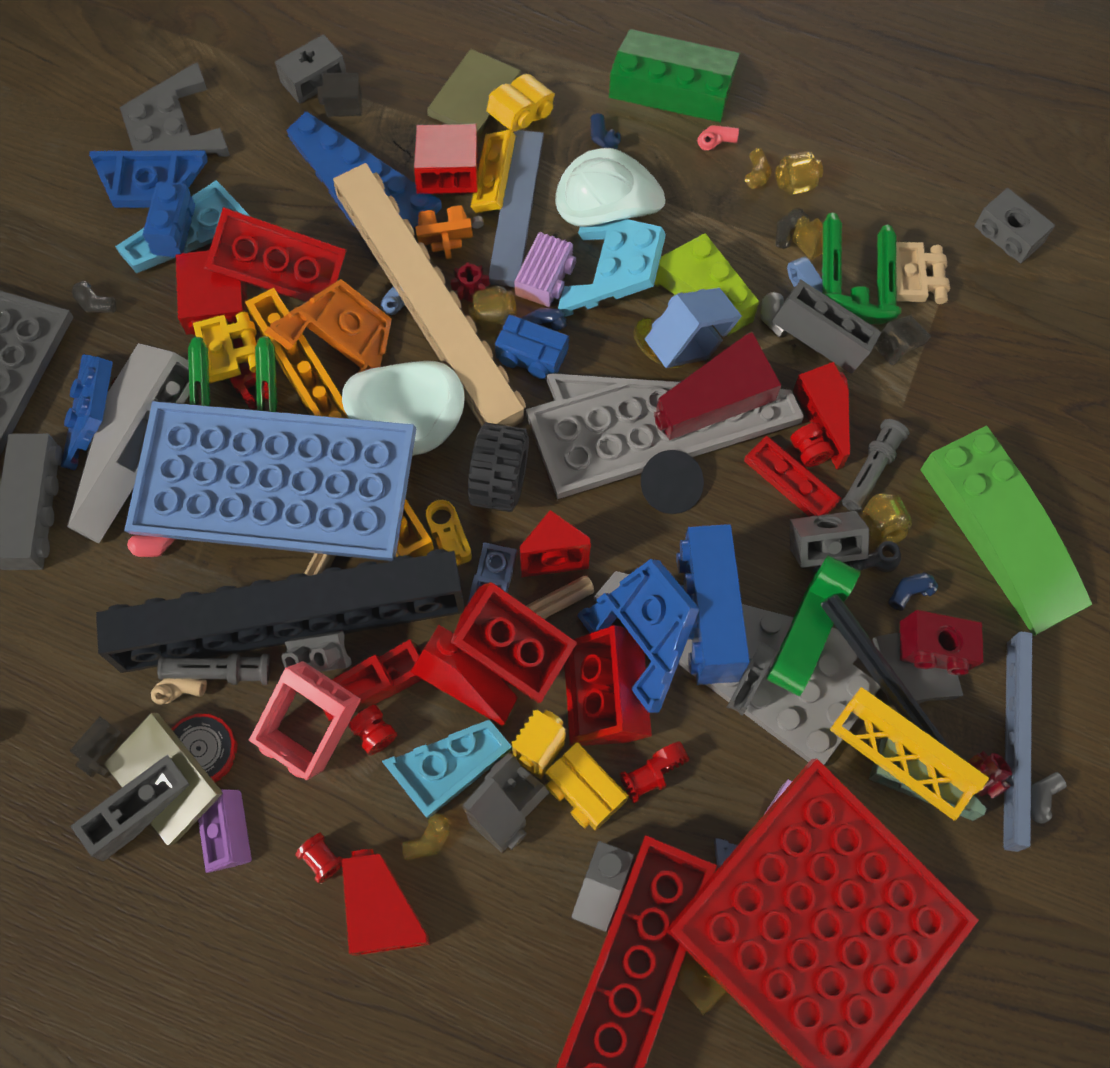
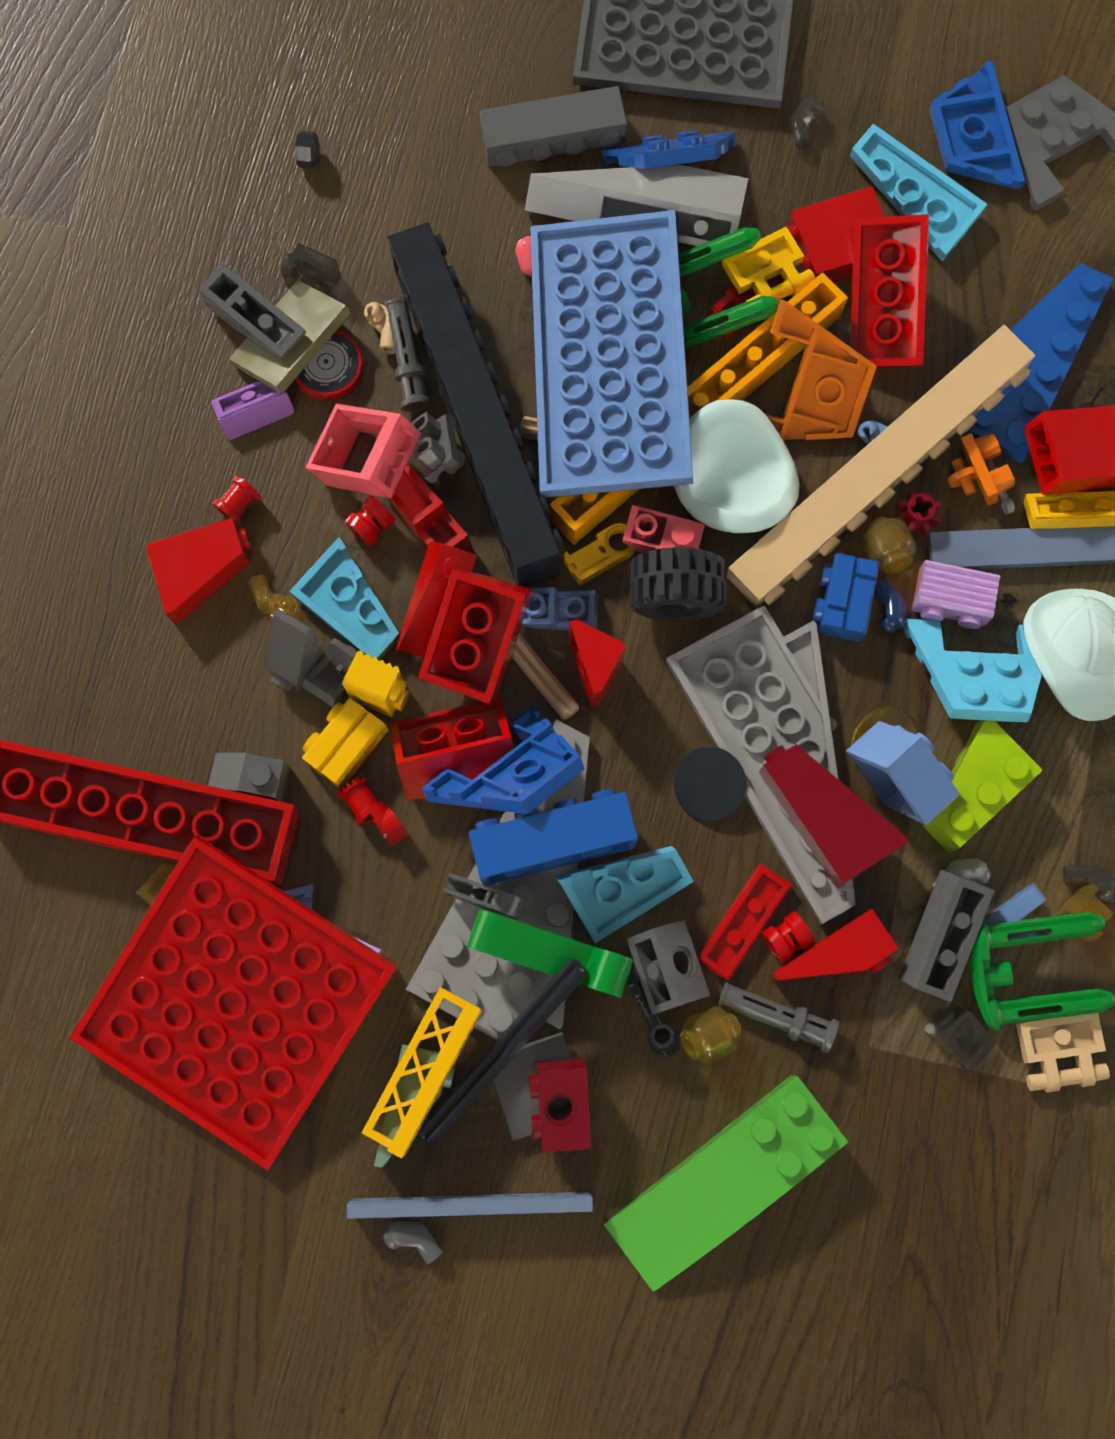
camera: 80 degrees right, 10 degrees up
(169, 219) = (913, 166): blue brick -> none
(448, 474) = (656, 530): none -> coral slope
(759, 568) = (623, 889): none -> medium azure wing
(911, 585) = (635, 1073): dark blue arm -> none
(996, 769) = (424, 1171): dark red gear -> none

